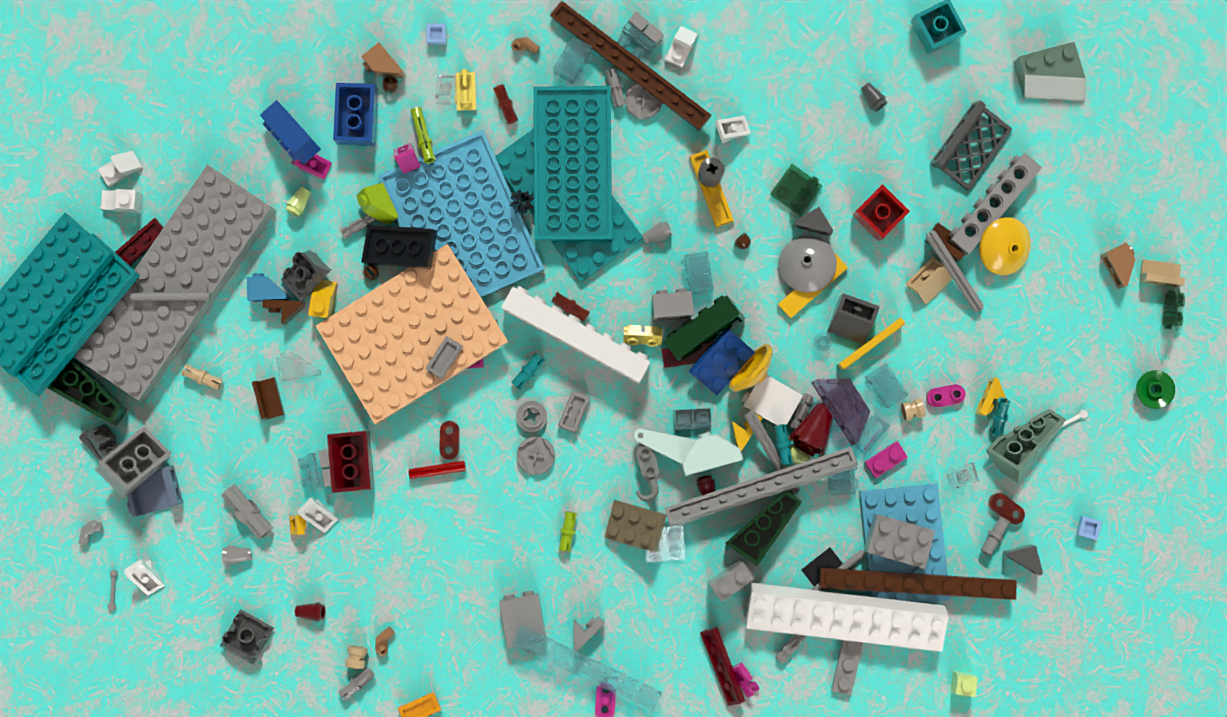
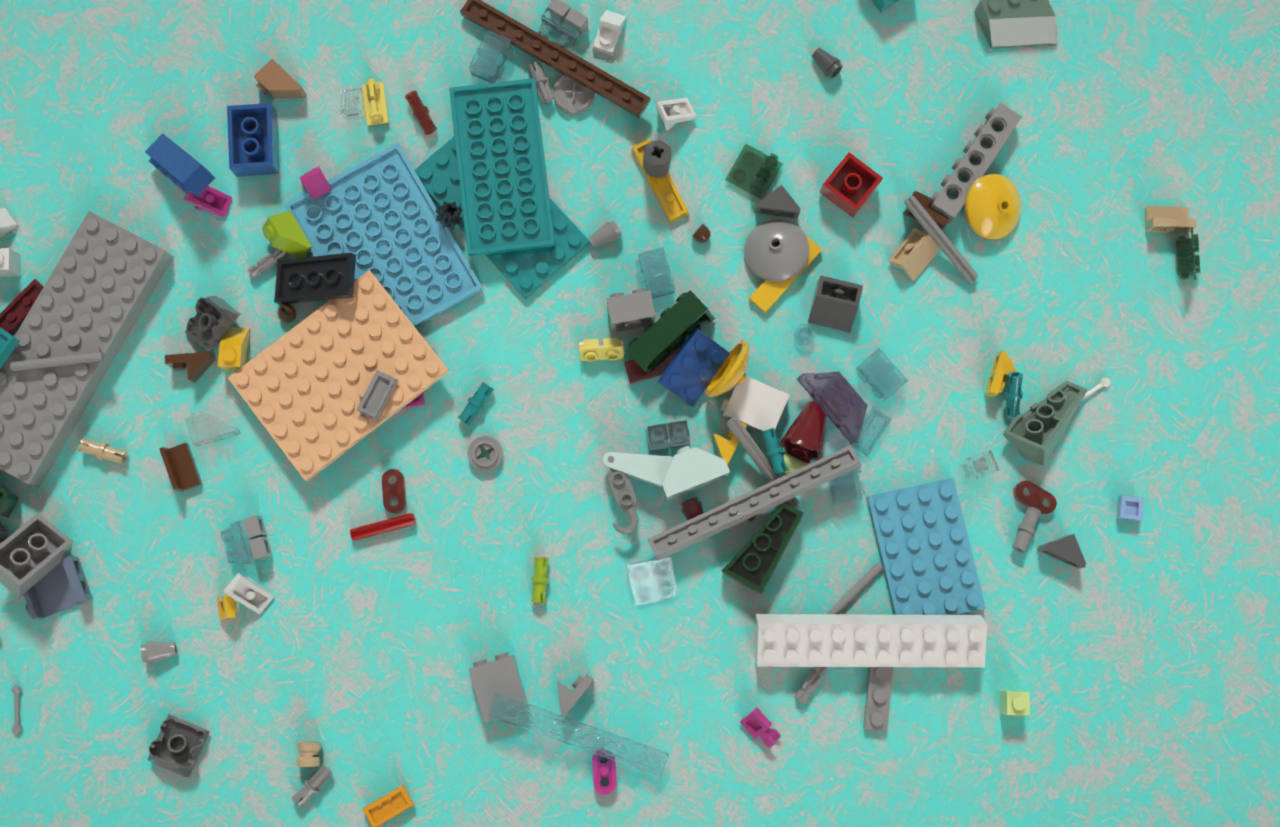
camera: 10 degrees left, 5 degrees down
(144, 576) = (52, 688): white slope -> none
(247, 511) = (167, 599): light grey piece -> none
(263, 288) = (164, 342): dark azure slope -> none
(298, 202) = (197, 243): yellowish green cone -> none
(311, 611) = (251, 707): dark red cone -> none
(350, 461) = (281, 527): dark red slope -> none
(381, 641) = (337, 734): medium nougat arm -> none
(390, 84) = (289, 104): reddish brown hinge -> none
(417, 116) = (337, 173): lime pin -> none
(435, 33) = (335, 45): light blue plate -> none
(525, 43) = (434, 46): medium nougat arm -> none
(535, 455) = (494, 497): light grey tile -> none
(570, 307) = (516, 326): clear red pin -> none
(573, 411) = (532, 443): light grey plate -> none
(575, 335) = (525, 355): white brick -> none
(635, 526) = (617, 563): dark tan plate -> none
(722, 666) = (735, 715): dark red tile -> none
(731, 580) = (733, 612): light grey brick -> none
(801, 411) = (789, 413): light grey axle -> none
(827, 559) = (835, 587): black sticker -> none
(871, 343) = (858, 330): yellow tile -> none
(886, 459) = (892, 457): dark pink plate -> none
(899, 541) = (919, 545): light grey brick -> none
(915, 409) = (914, 398): tan wheel -> none
(918, 583) = (946, 592): reddish brown plate -> none
(946, 395) = (950, 379): dark pink plate -> none
(960, 133) = (923, 98): dark grey fence -> none
(1119, 264) = (1121, 213): medium nougat slope -> none
(1164, 389) = (1190, 341): green dish -> none

